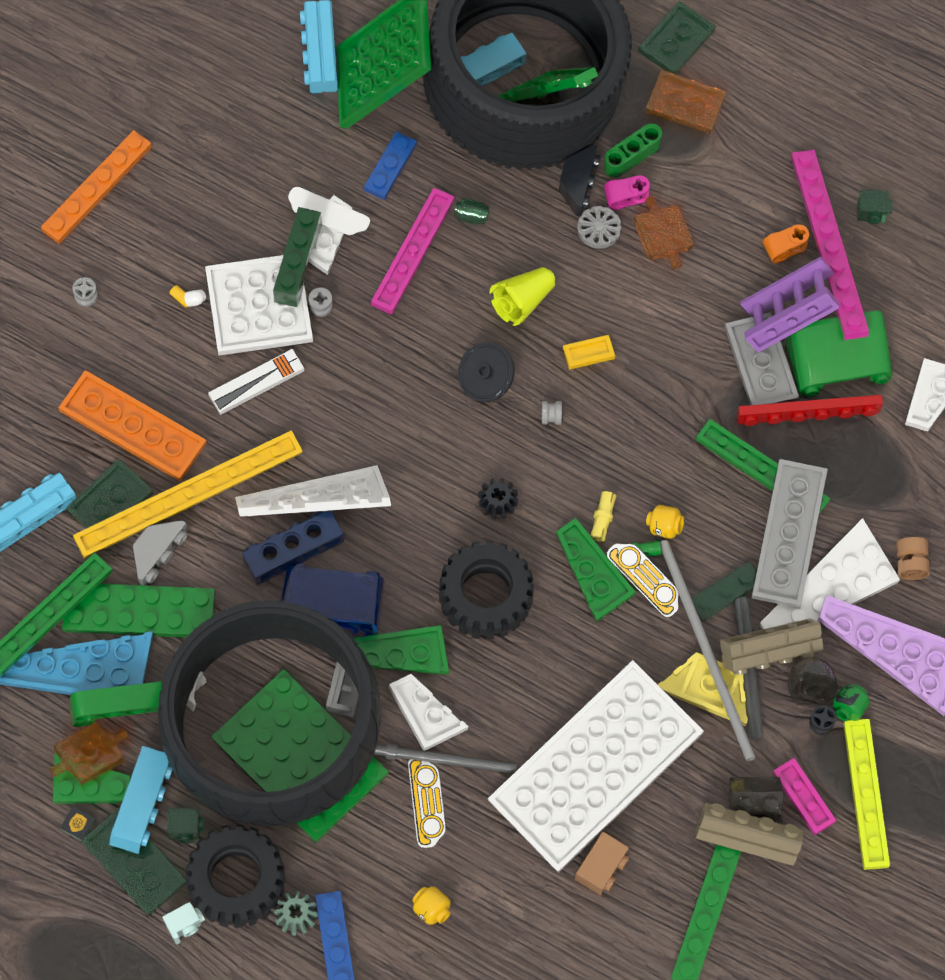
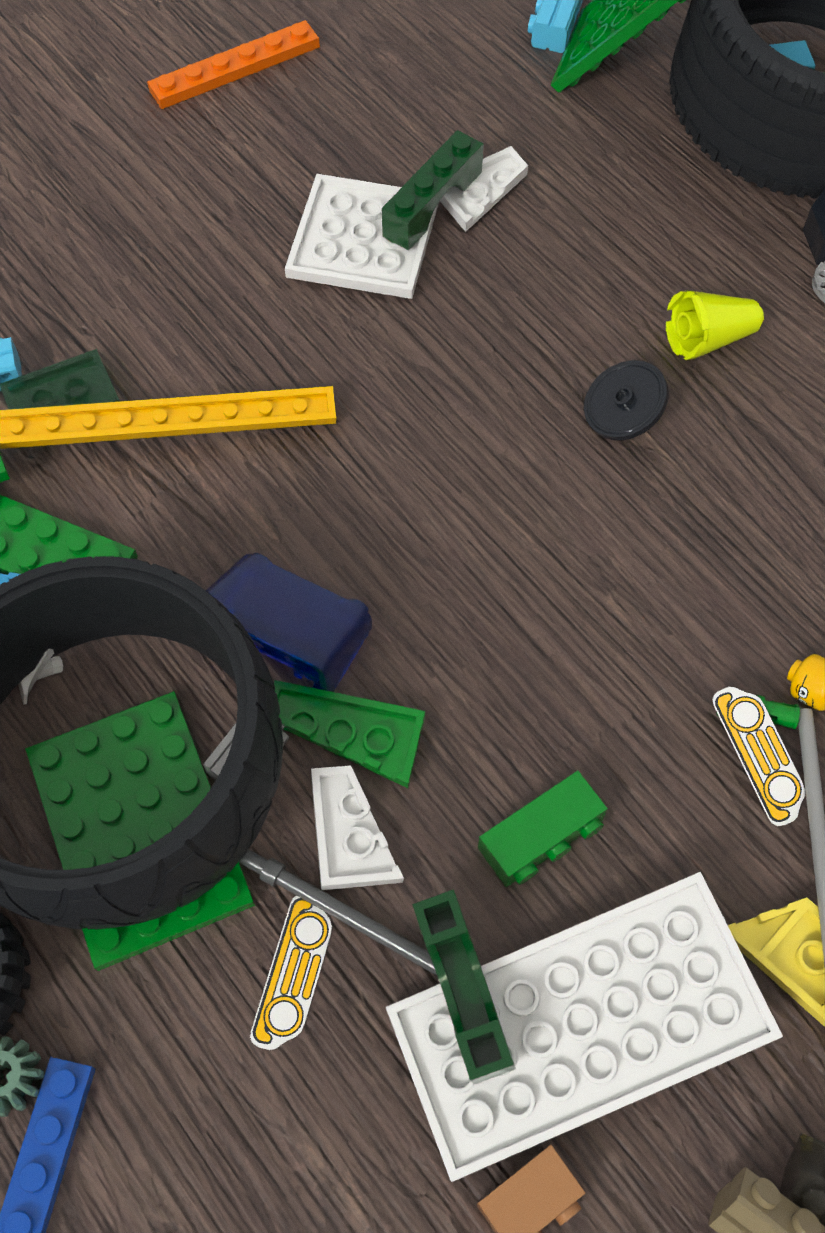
camera: 25 degrees right, 5 degrees down
(83, 286) = (160, 160): light grey wheel -> none
(132, 425) = (138, 321): orange plate -> none
(156, 548) = (84, 472): light grey slope -> none
(189, 298) = (281, 204): arm -> none
(256, 381) = (318, 321): white tile -> none
(307, 548) = (283, 541): dark blue brick -> none
(320, 308) = (441, 255): light grey wheel -> none
(333, 214) = (504, 167): white sticker -> none
(341, 491) = (357, 480): white wing -> none
(390, 165) = (595, 141): blue plate -> none
(412, 251) = (584, 236): dark pink plate -> none
(431, 905) = (220, 1155): yellow head -> none
(471, 211) = (679, 214): clear green brick -> none
(492, 560) = (520, 639): black tyre -> none
(504, 492) = (569, 556): black gear -> none
(527, 769) = (464, 987): none -> dark green arch
(536, 669) = (543, 830): none -> green brick
(551, 412) = (698, 480): light grey wheel -> none
(588, 352) = (778, 424): yellow tile -> none
(596, 575) = (686, 725): green wing -> none
(603, 516) = (724, 644): light yellow pin -> none

